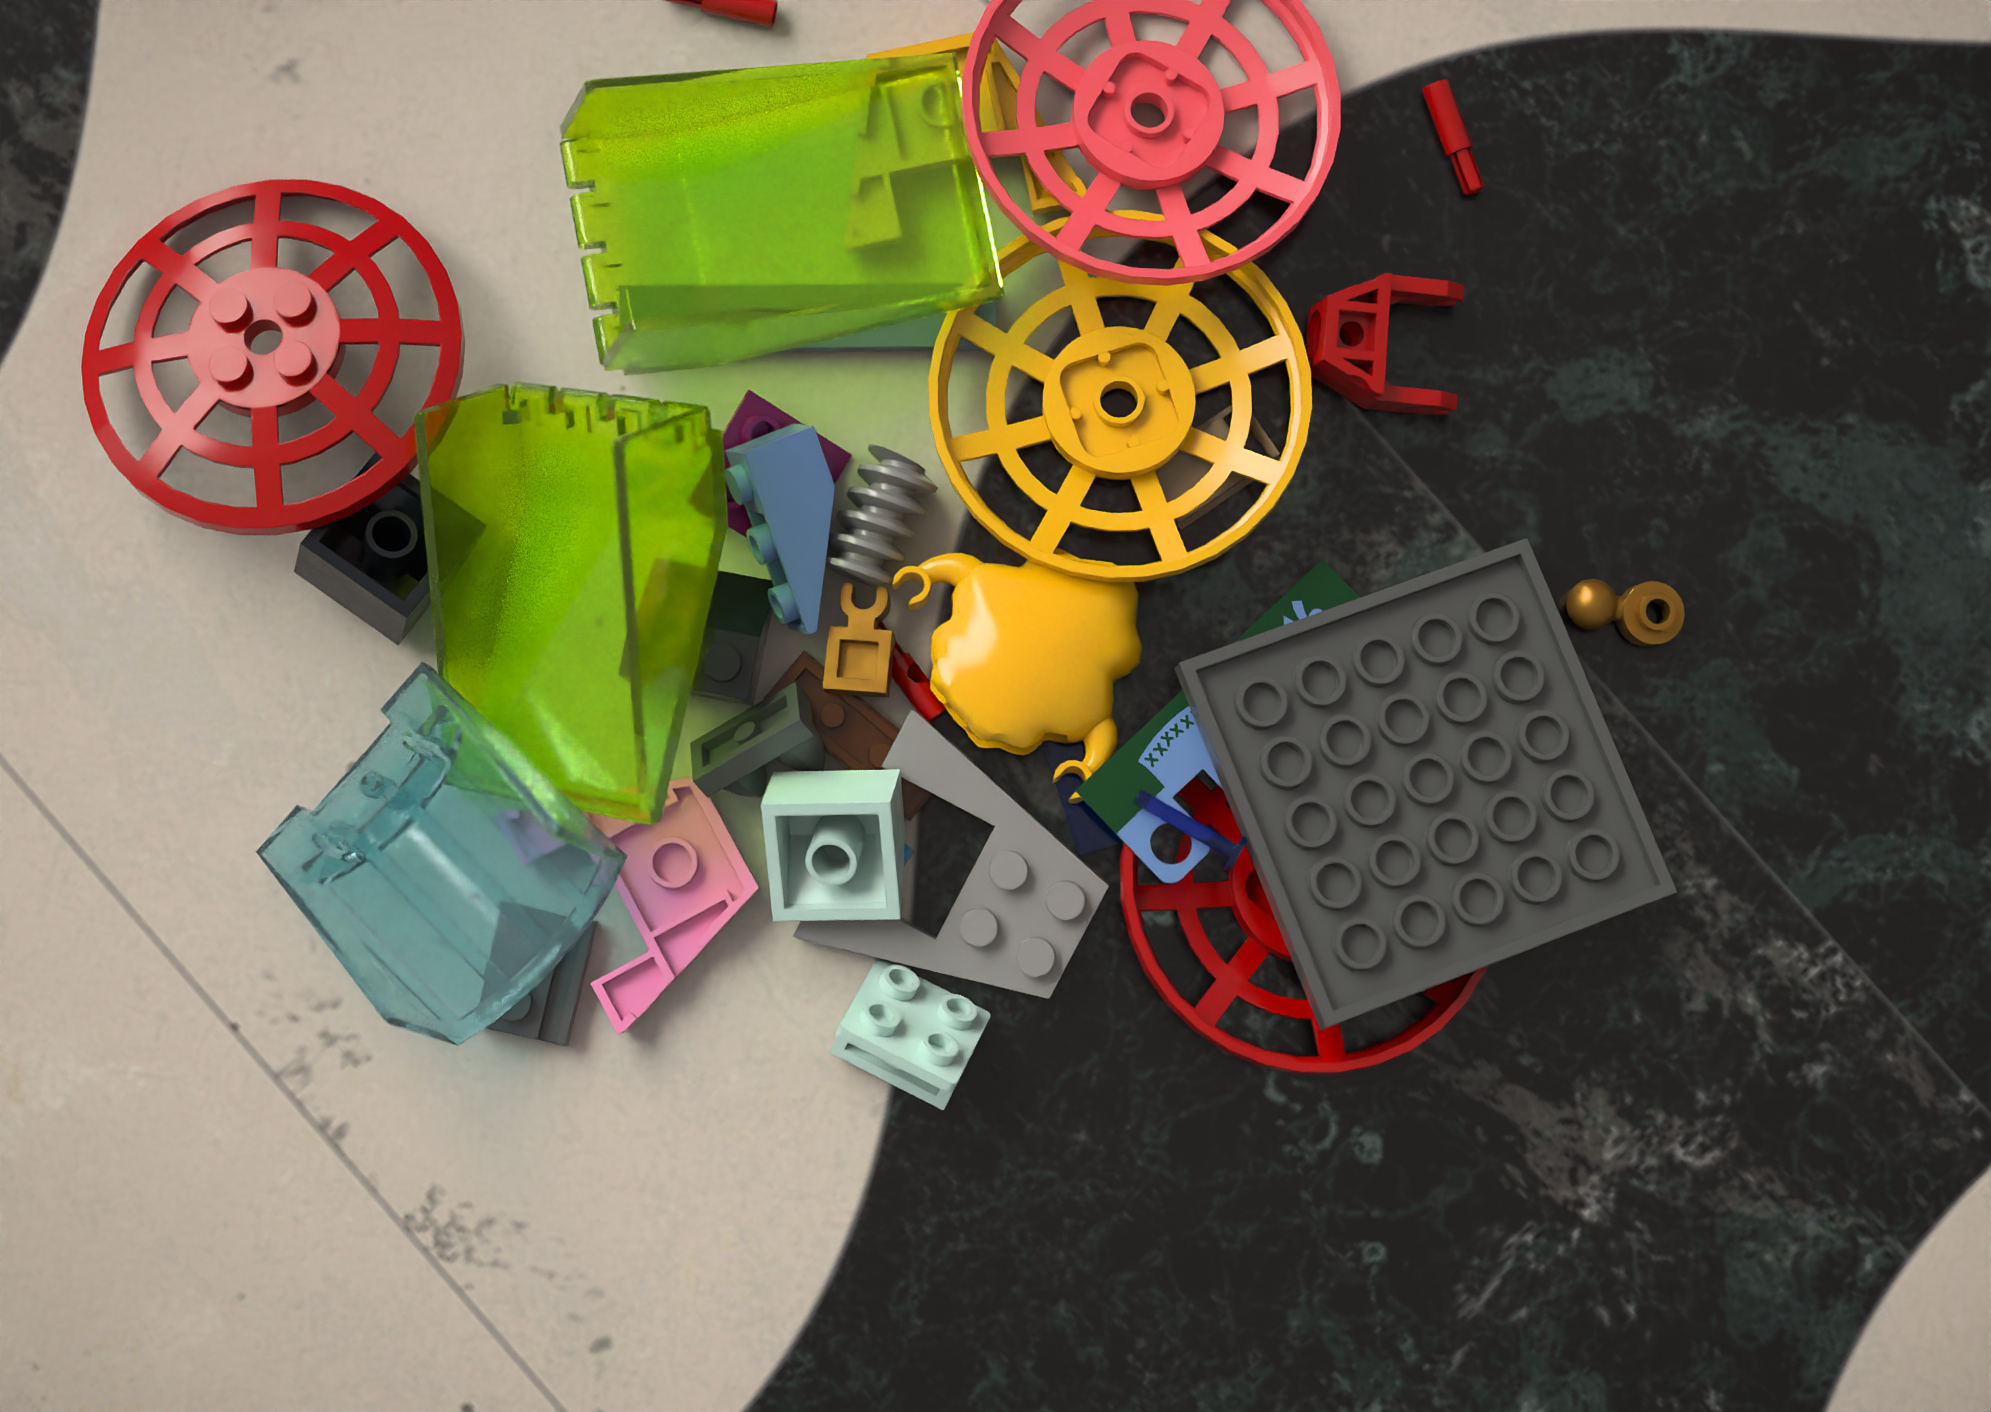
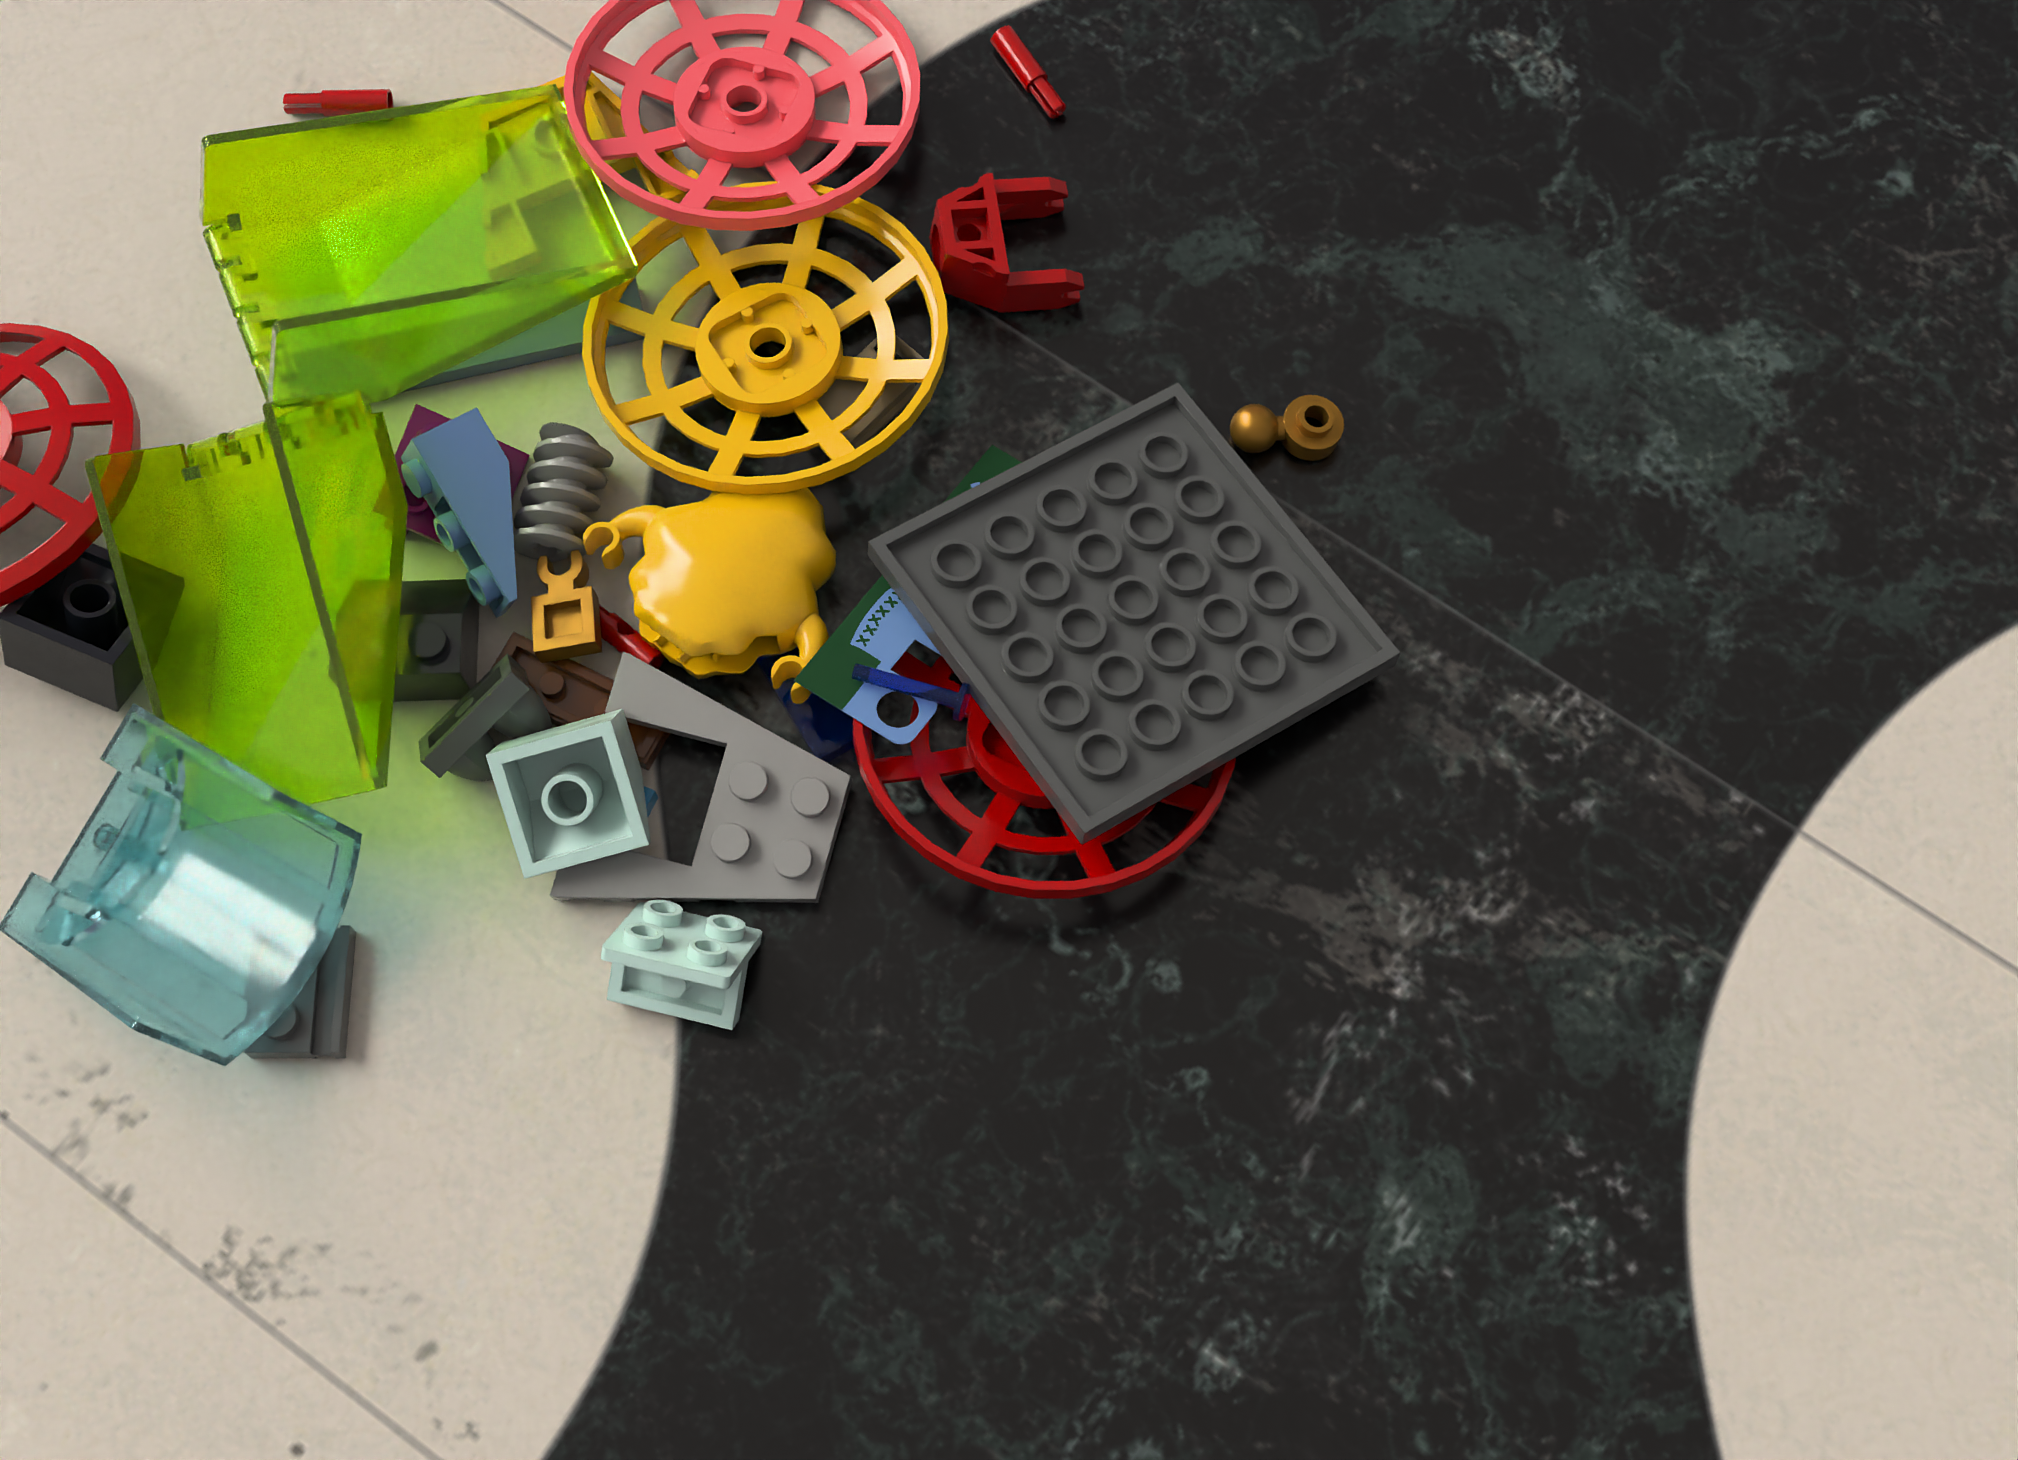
camera: 10 degrees left, 15 degrees down
(680, 889) = (429, 873): bright pink wing -> none

